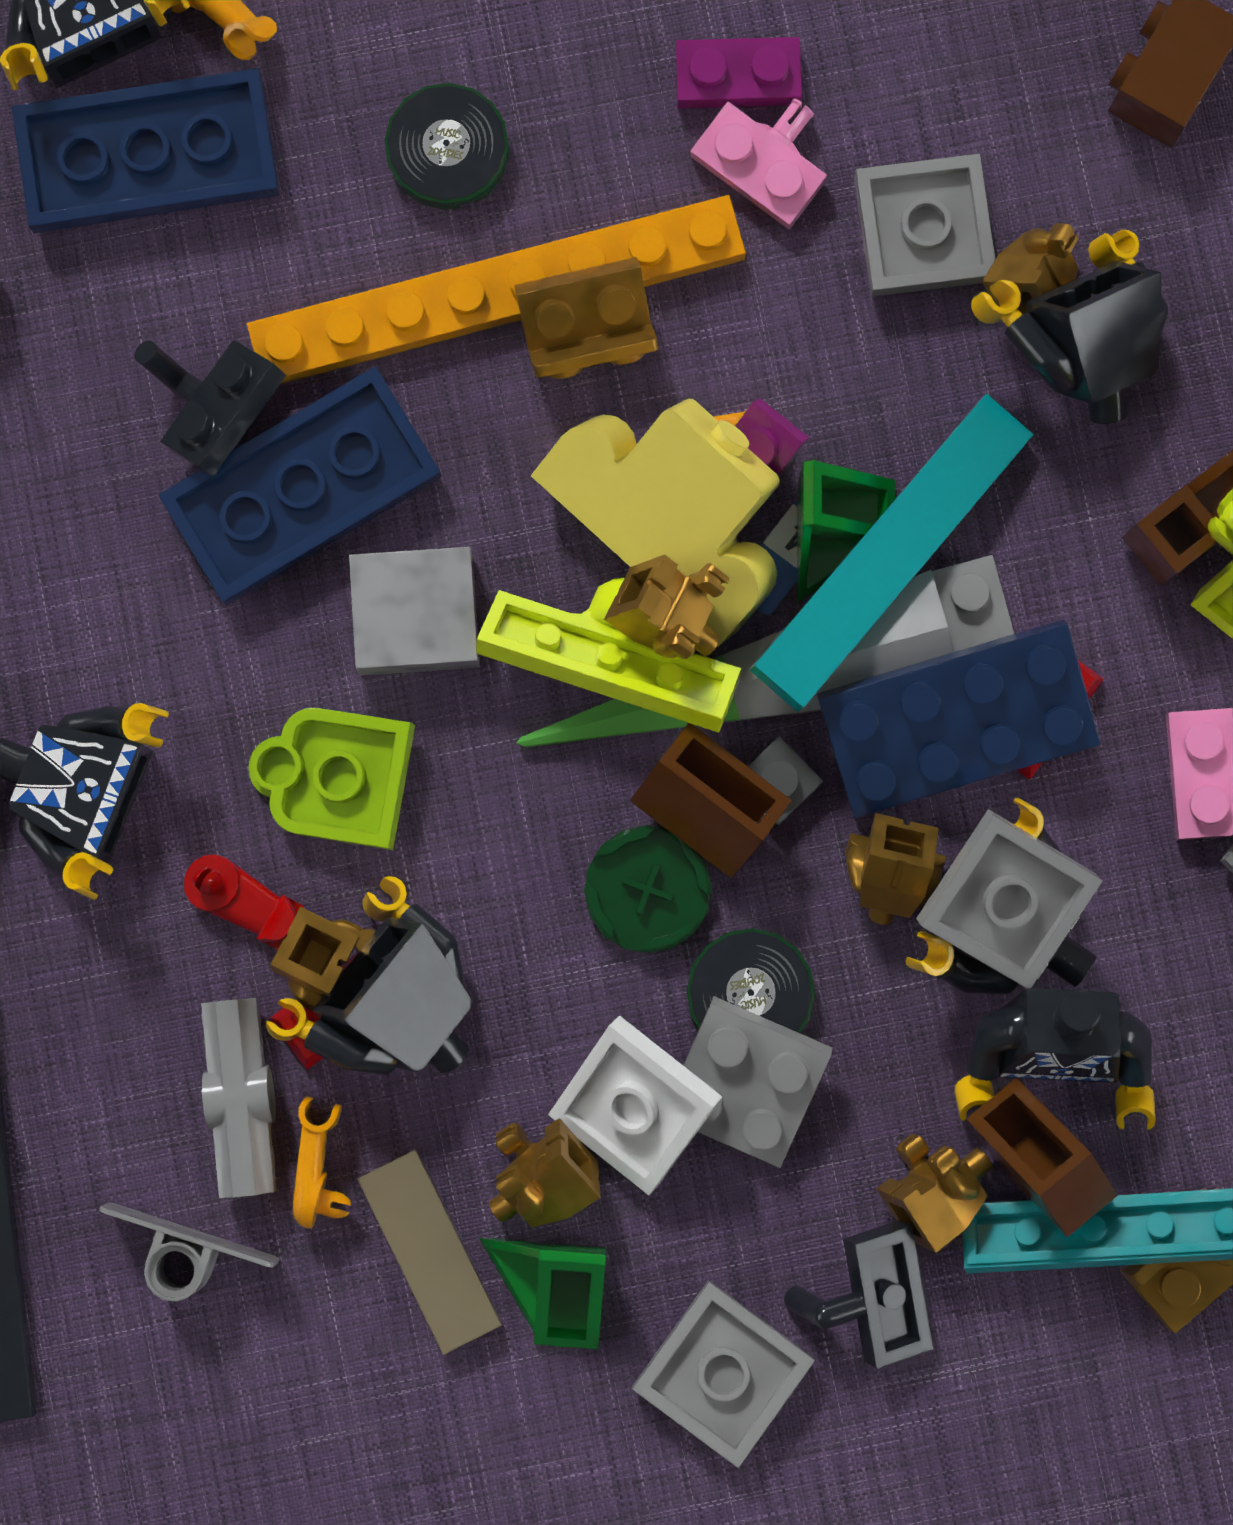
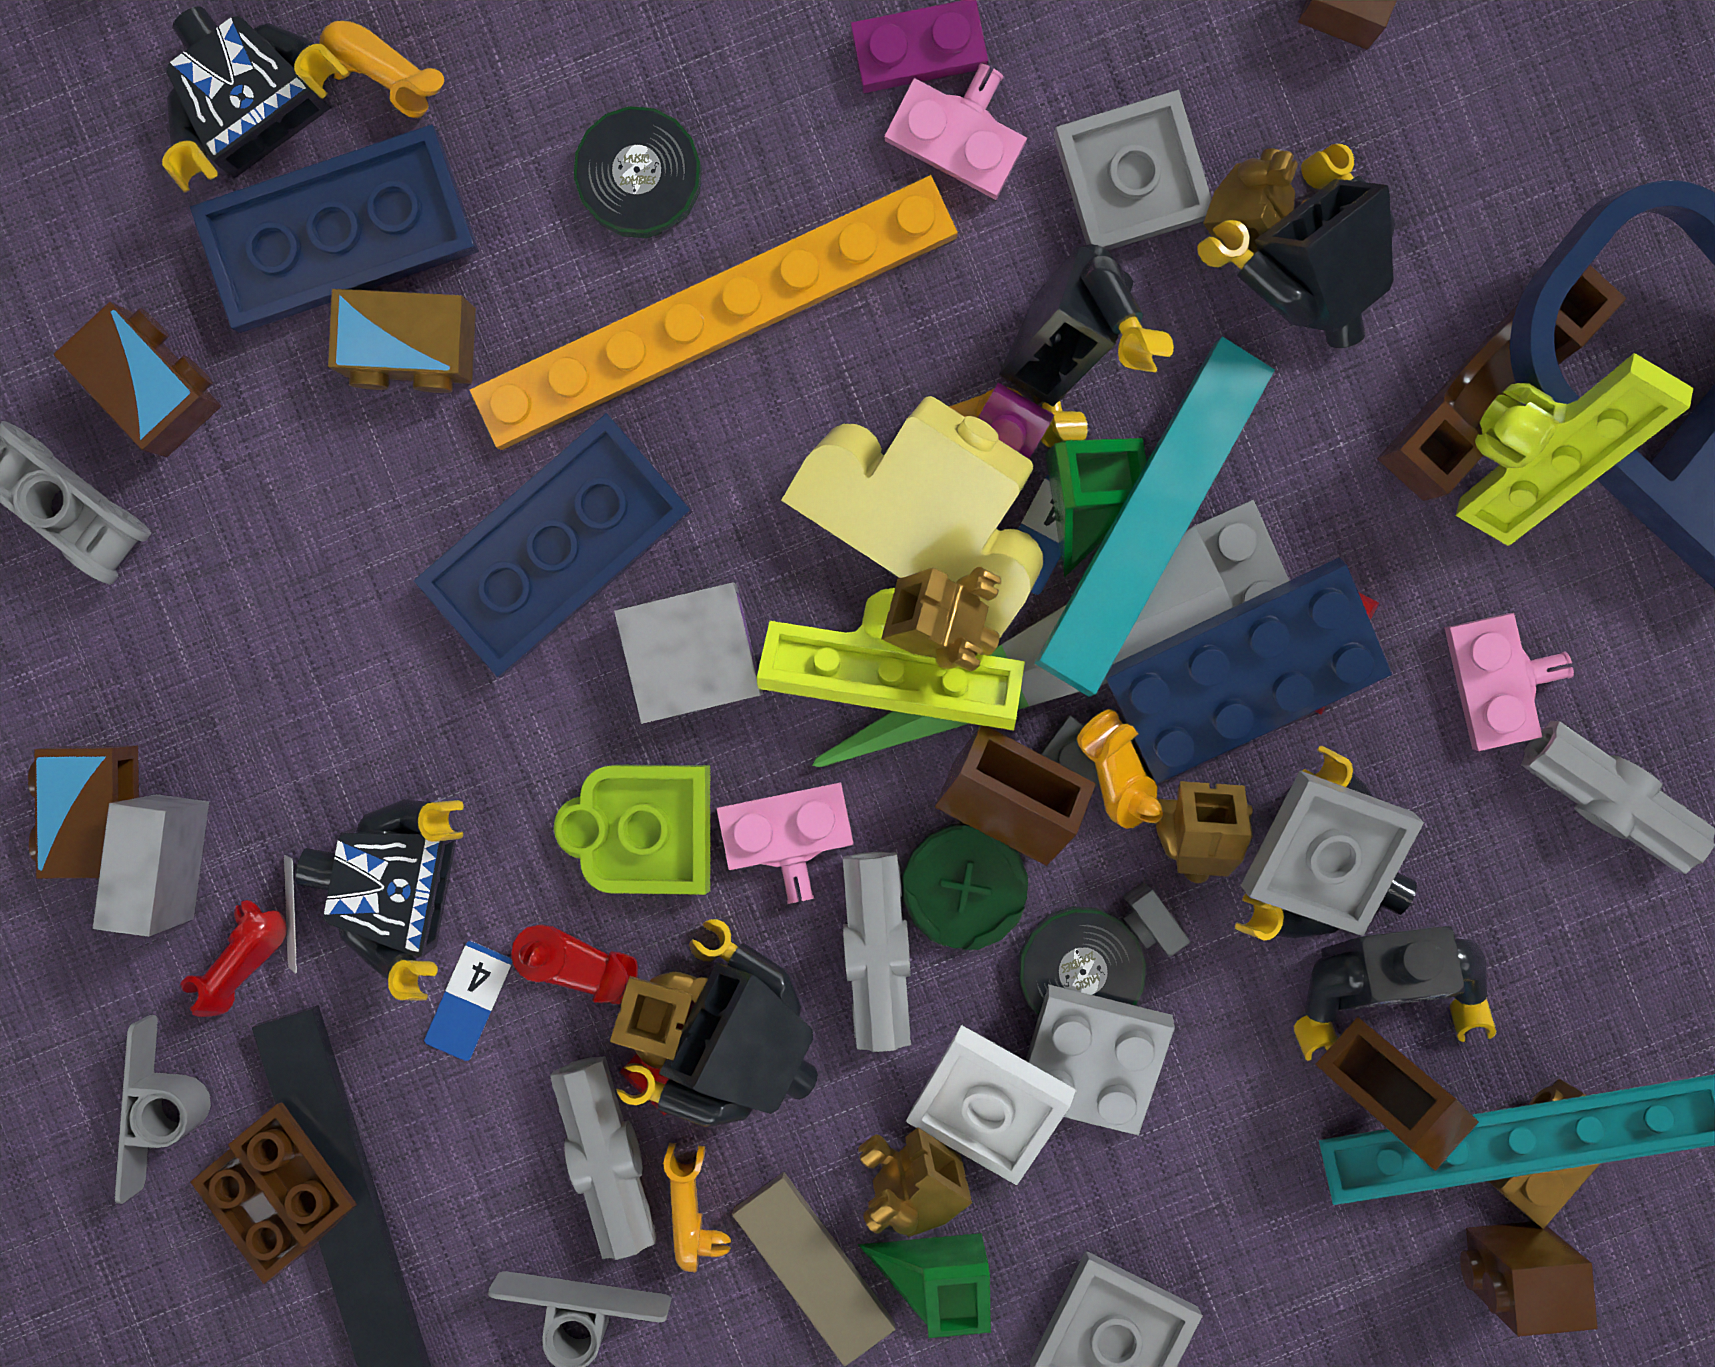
camera: 10 degrees left, 5 degrees up
(131, 922) = (468, 1000): none -> sticker
(191, 264) = (401, 338): none -> pearl gold brick
(218, 407) = (457, 479): black plate -> none
(479, 805) = (786, 832): none -> bright pink plate
(548, 935) = (876, 951): none -> light grey piece
(586, 318) = (809, 328): pearl gold bracket -> none
(822, 816) = (1124, 785): none -> light orange piece
(828, 952) = (1152, 921): none -> dark grey plate
(836, 358) = (1072, 328): none -> black torso
(883, 1299) = (1260, 1244): black plate -> none
(938, 1193) = (1296, 1138): pearl gold piece -> none
(1148, 1370) = (1530, 1278): none -> reddish brown brick

